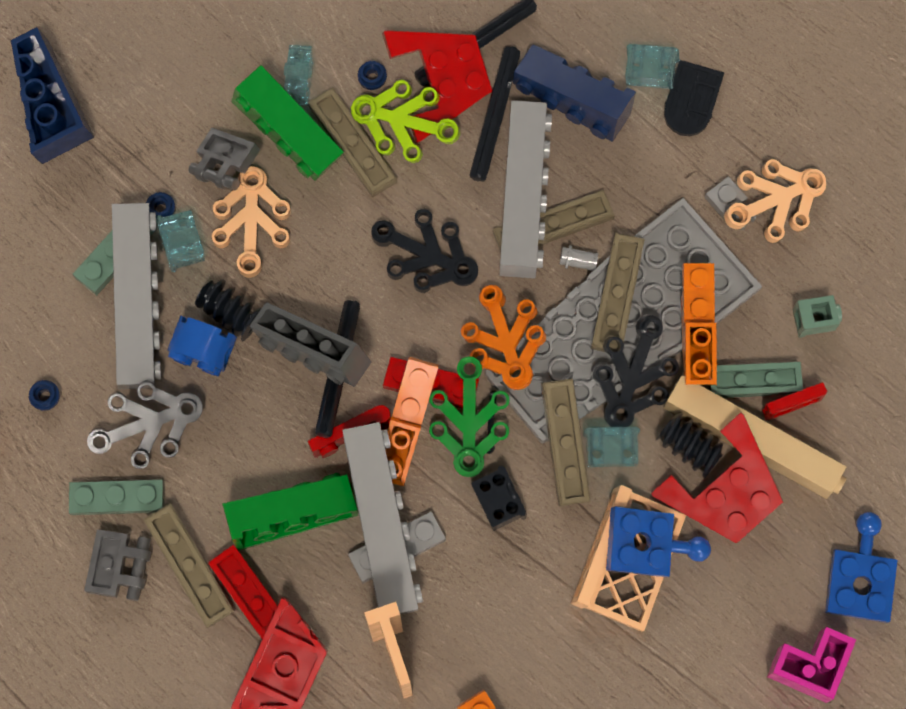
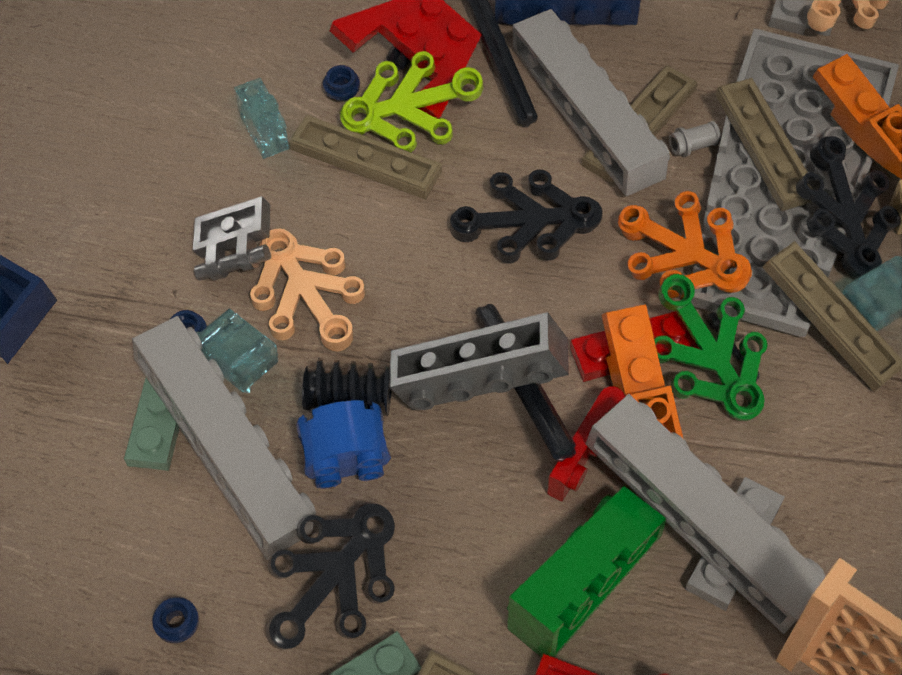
camera: 30 degrees left, 15 degrees down
(286, 123) = (279, 166): green wedge -> none
(500, 498) = (809, 418): black piece -> none

